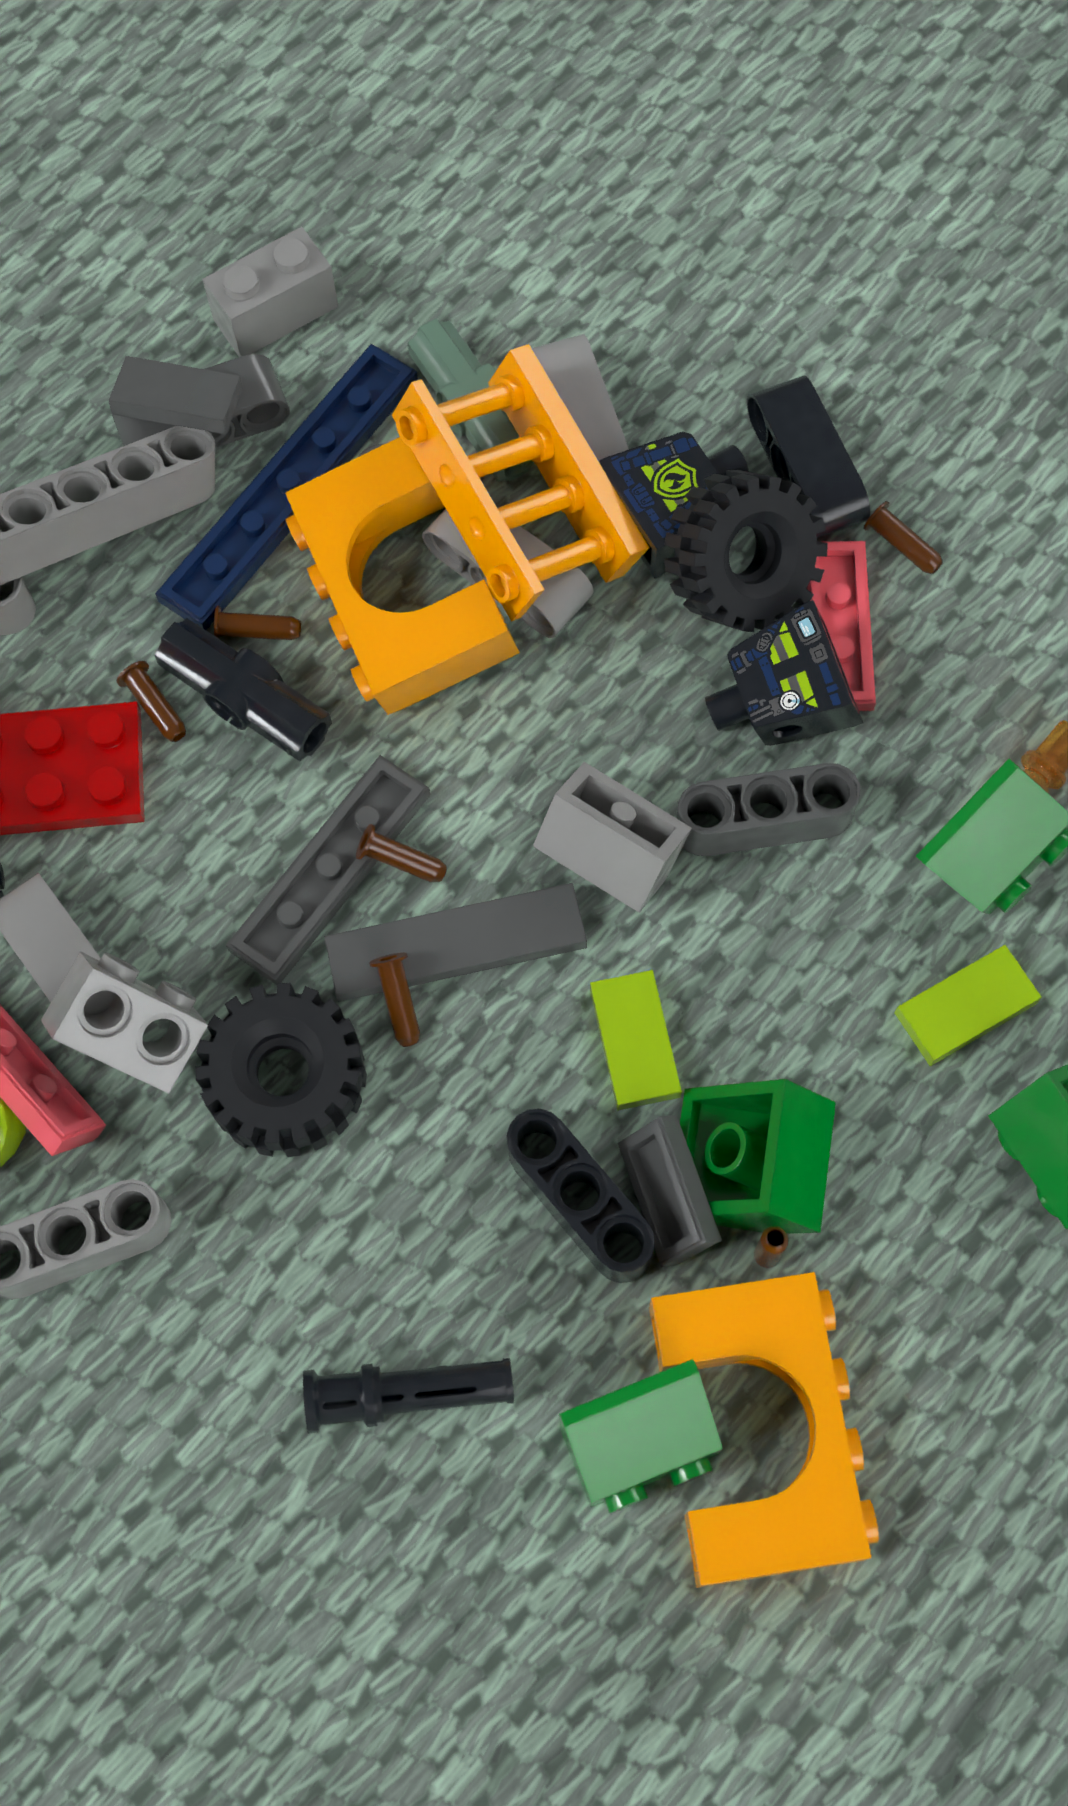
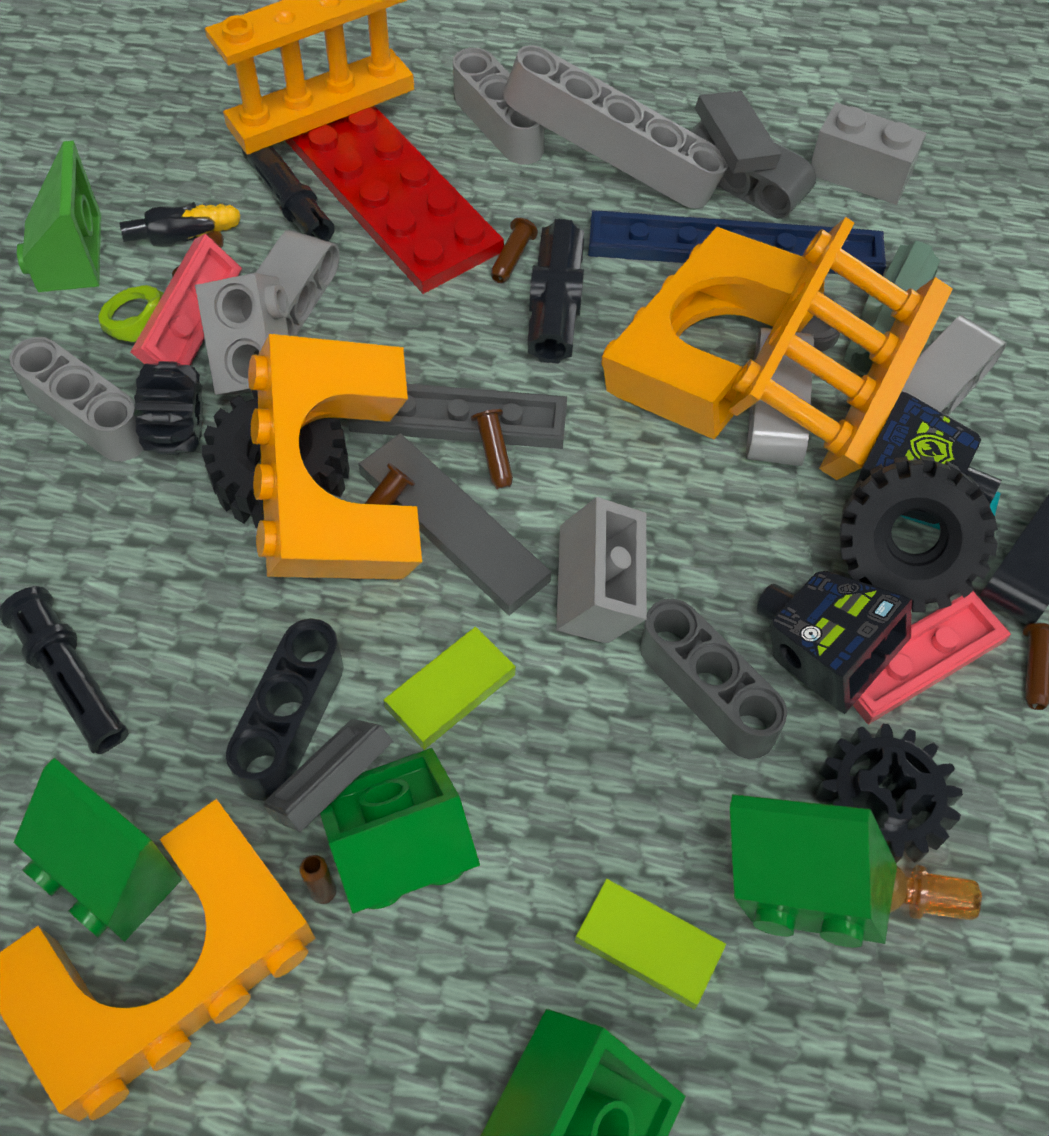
camera: 55 degrees right, 10 degrees down
(159, 1147) = (168, 408): none -> black gear
(256, 626) = (611, 275): reddish brown piece -> none
(262, 1009) = (303, 525): none -> light orange arch
(944, 709) = (907, 775): none -> black gear

